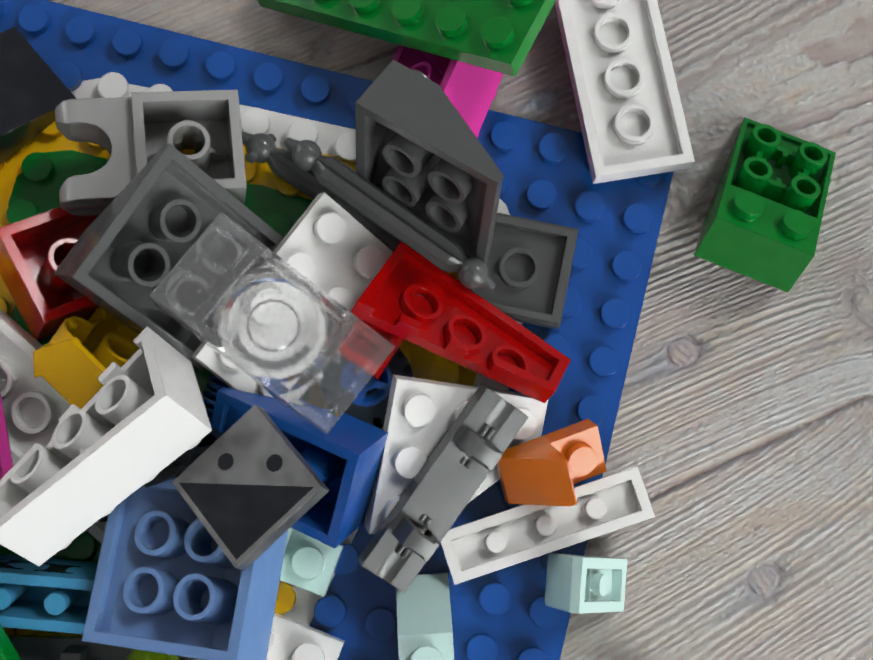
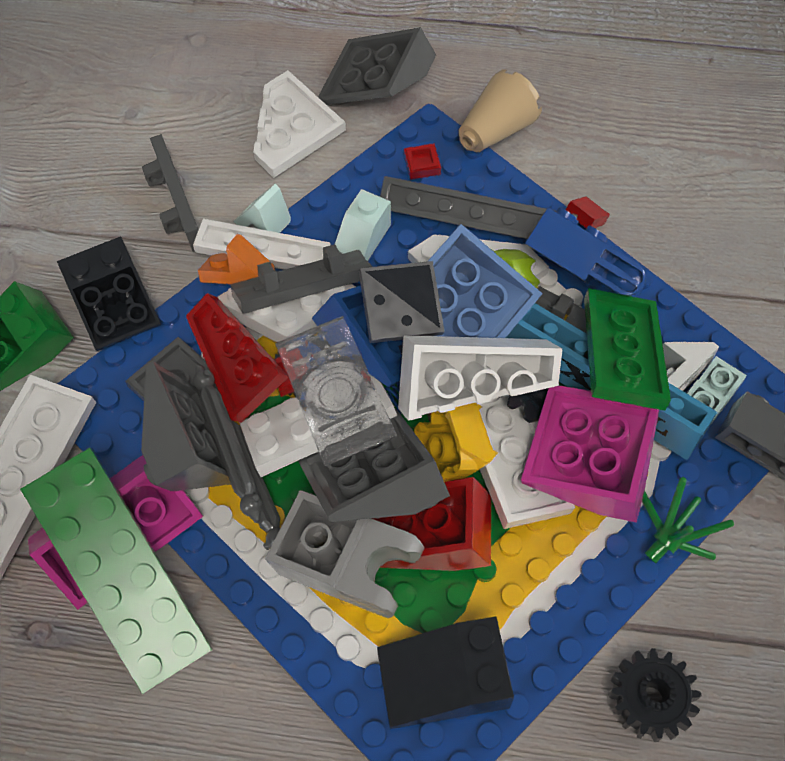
camera: 145 degrees left, 20 degrees down
(693, 333) = (108, 293): none -> black slope
(775, 578) = (163, 171): none -> dark grey hinge

